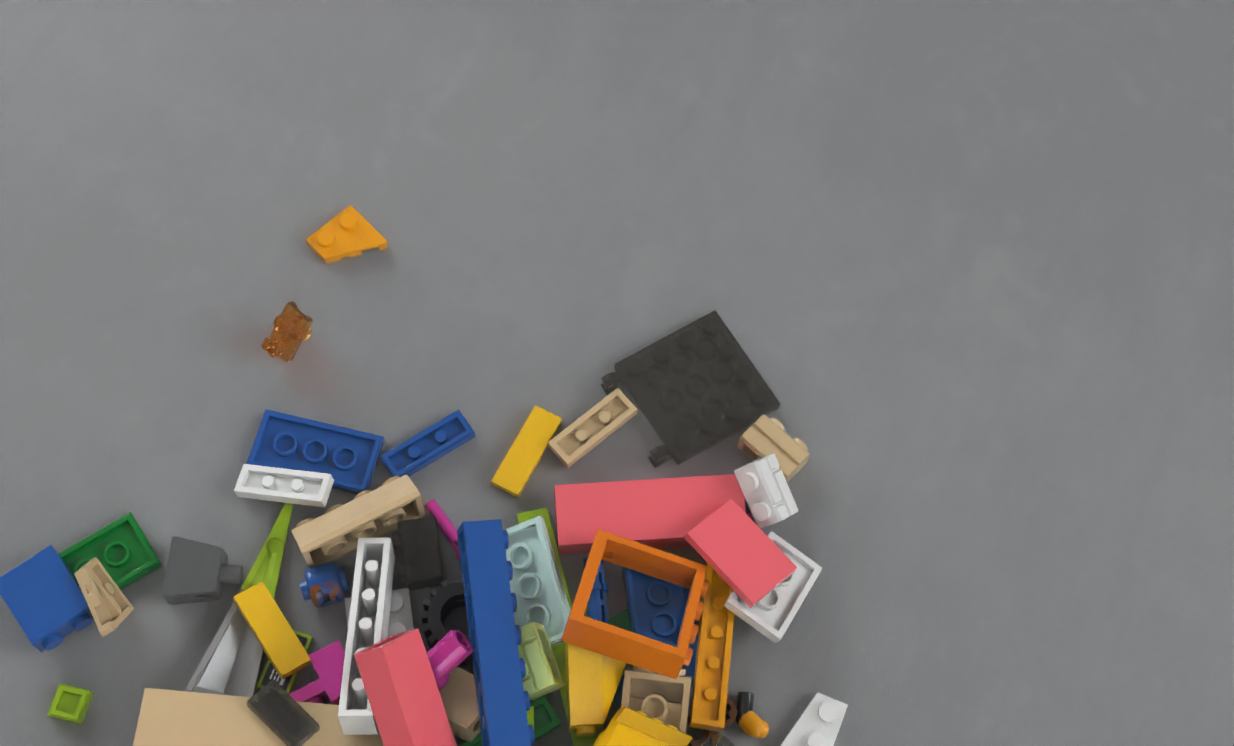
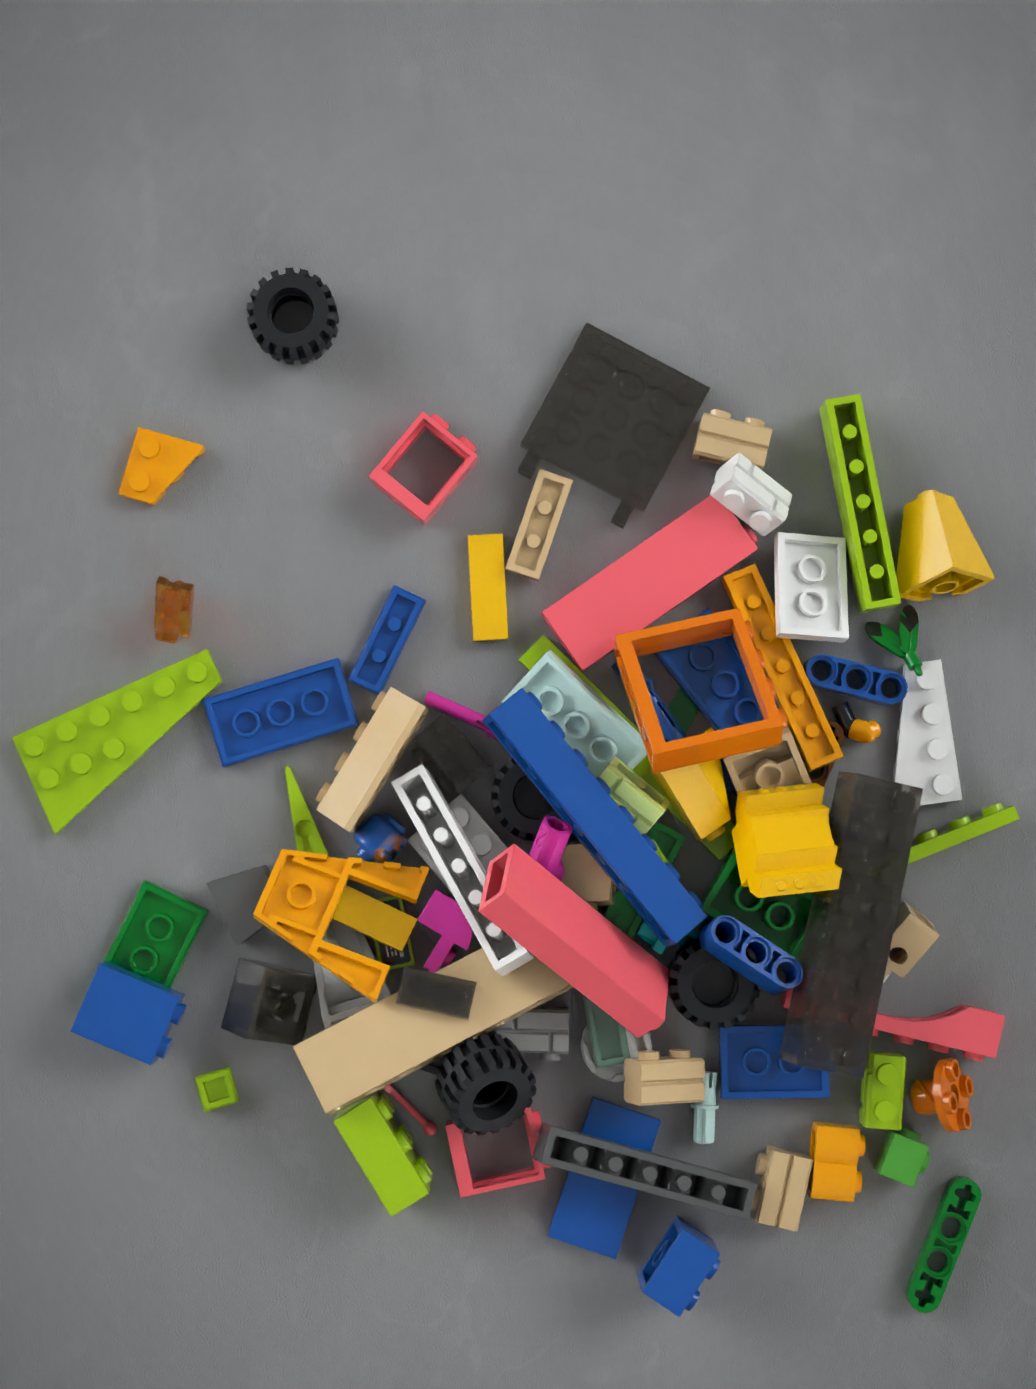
camera: 30 degrees left, 20 degrees up
(103, 596) = (184, 980): tan wing -> none
(155, 655) = (269, 1002): none -> clear smoke slope
(173, 397) = (96, 743): none -> lime wing
(237, 586) = (304, 897): none -> light orange wing
(284, 485) = (276, 767): white plate -> none
(506, 171) = (289, 288): none -> black tyre
(526, 318) = (437, 428): none -> coral window
(740, 553) = (765, 576): coral tile -> none
(772, 695) = (871, 680): none -> blue beam
(821, 675) = (900, 645): none -> green piece
(846, 548) = (859, 504): none -> lime brick
(890, 618) = (938, 550): none -> yellow slope

